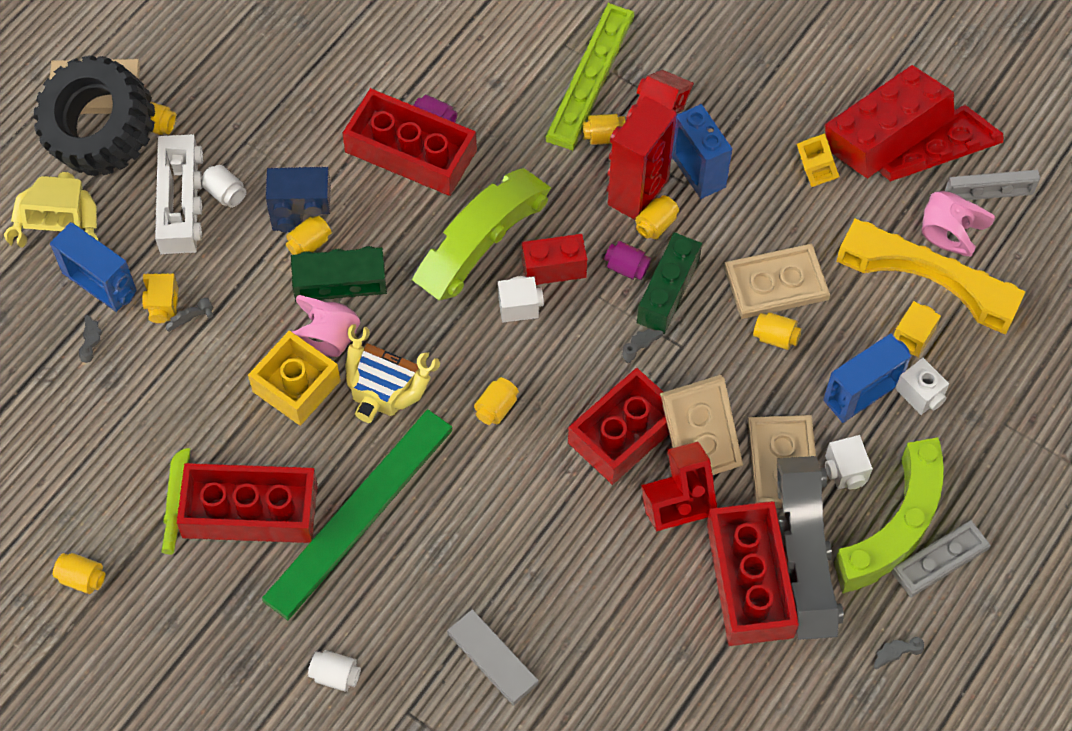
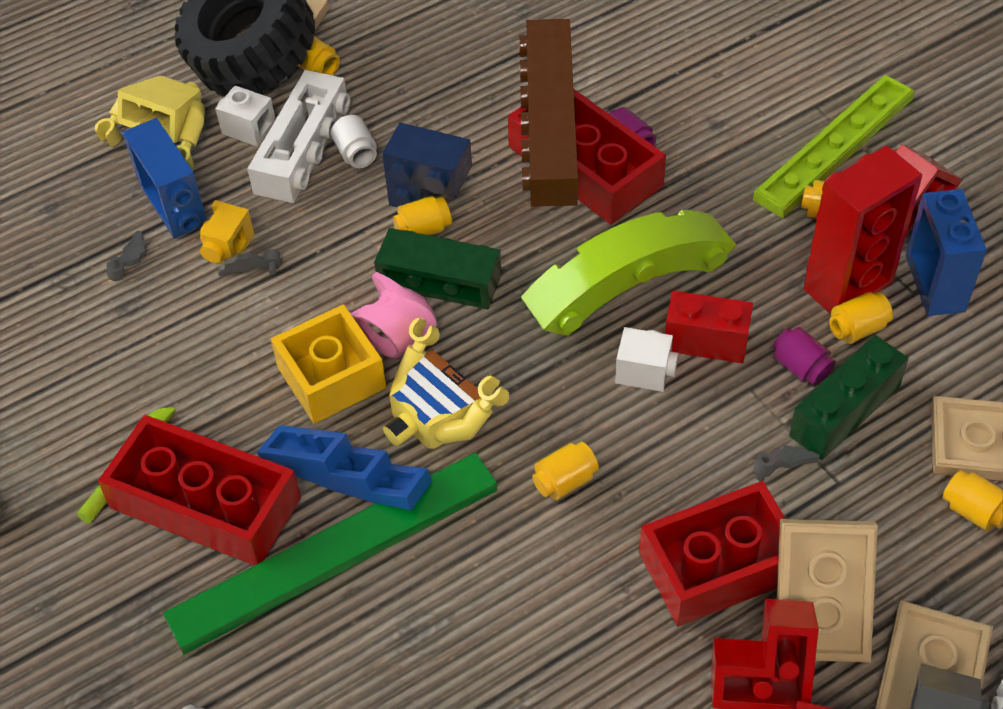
camera: 25 degrees right, 10 degrees down
(124, 189) = (245, 115): none -> white brick
(341, 452) = (335, 464): none -> blue slope
(378, 123) = (551, 114): none -> reddish brown brick

